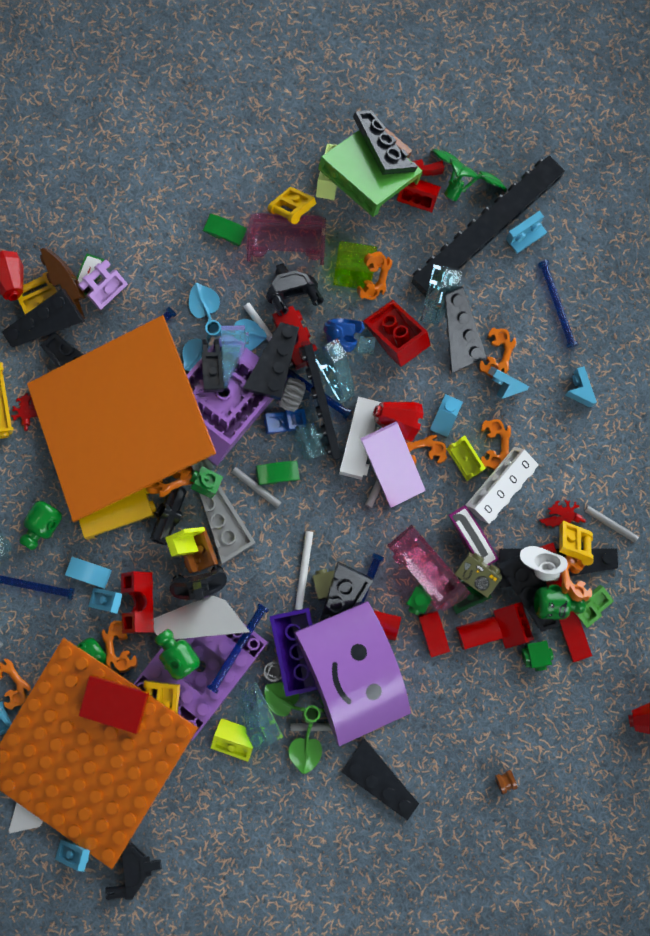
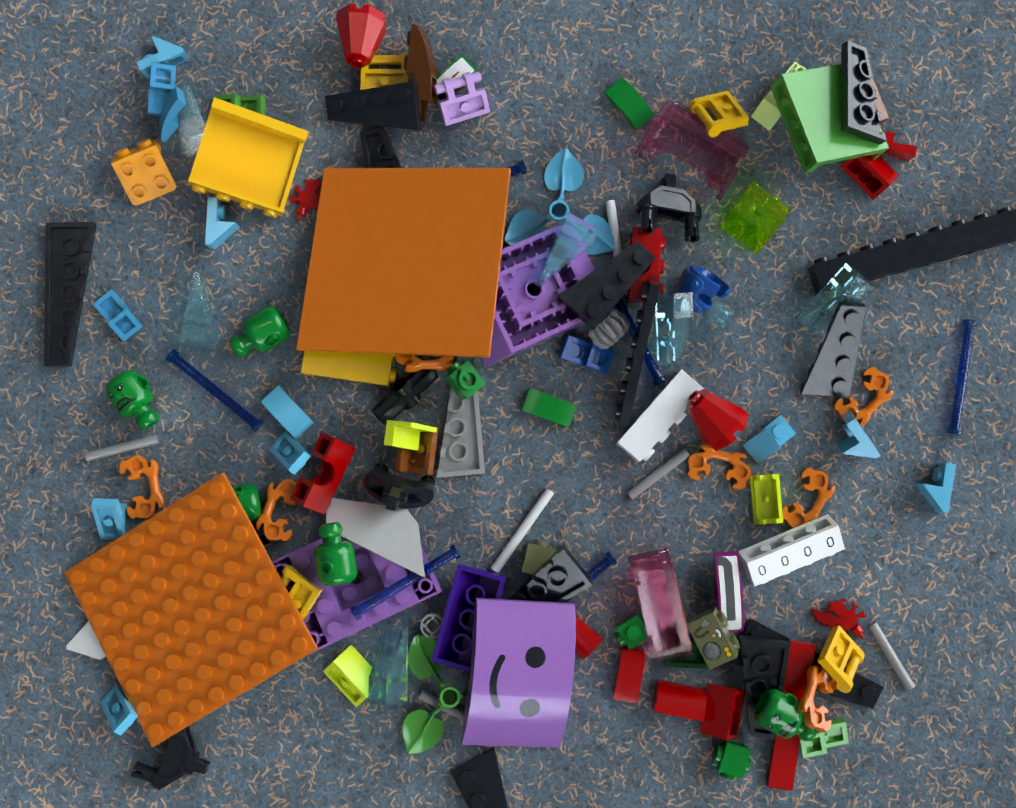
camera: 30 degrees right, 5 degrees up
(113, 704) = (239, 575): red tile -> none
(212, 368) = (535, 256): black hinge -> none
(257, 488) = (515, 408): light grey bar -> none
(310, 441) = (602, 391): clear light blue hips -> none
(374, 262) = (777, 226): orange helmet -> none
(393, 464) = (681, 465): lavender tile -> none
(397, 333) = (763, 318): red slope -> none
(456, 185) = (917, 183): green plant -> none
(526, 233) = (969, 278): medium azure bracket -> none
(545, 563) = (794, 666): white piece -> none

